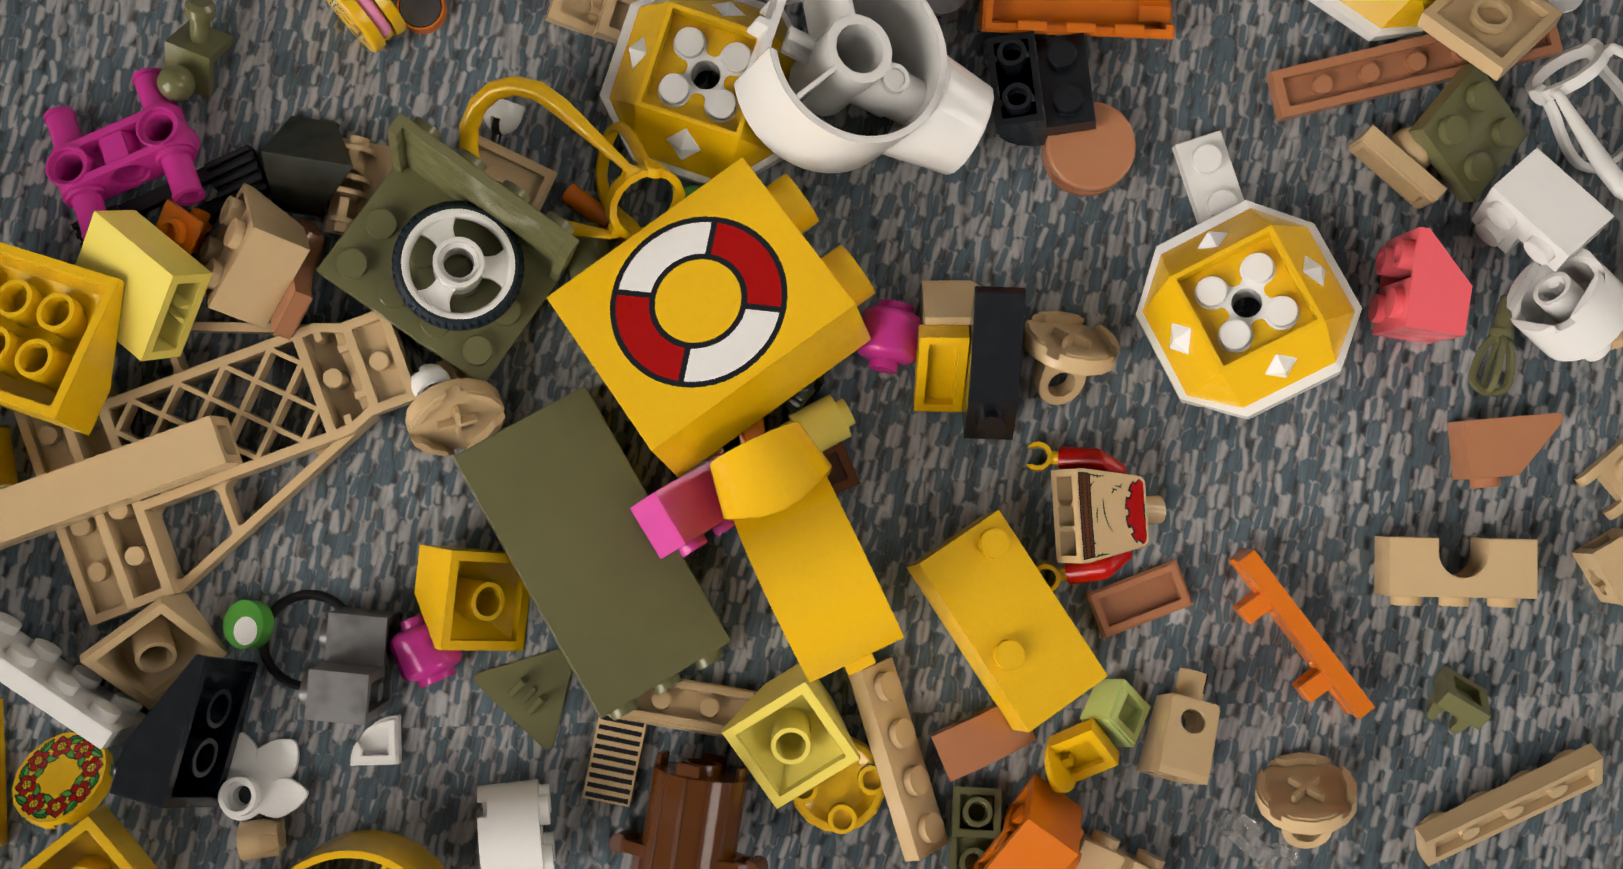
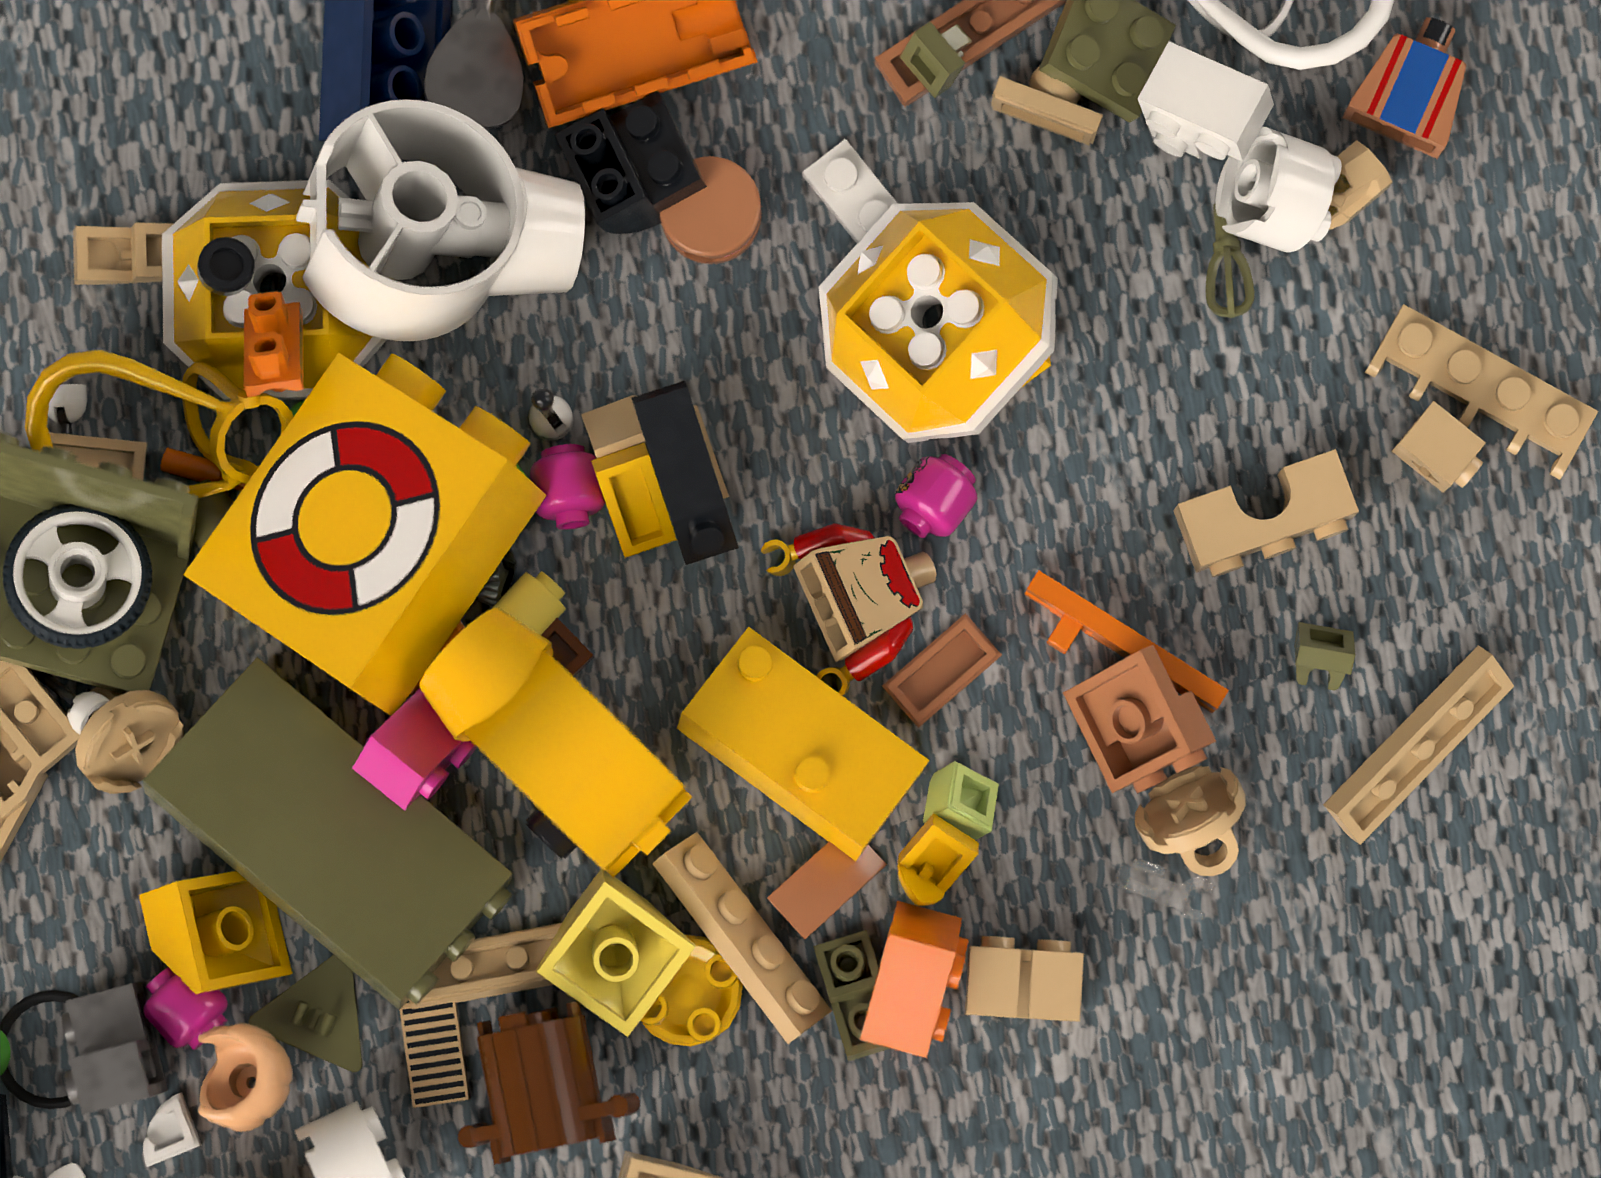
camera: 15 degrees left, 5 degrees down
(433, 746) = (267, 1062): none -> light nougat piece
(673, 49) = (225, 266): none -> black tile
(689, 130) = (272, 344): none -> orange hips
(769, 618) = (550, 833): none -> black tile
(898, 269) = (547, 412): none -> white hinge
(1067, 346) = (763, 426): tan tile -> none
(1175, 751) = (1037, 813): tan torso -> none
(1189, 455) = (936, 496): none -> dark pink head
(1292, 706) = (1139, 722): none -> nougat plate
(1326, 89) = (936, 56): none -> olive tile
(1420, 290) = (1116, 233): coral slope -> none
(1497, 446) = (1262, 365): nougat slope -> none

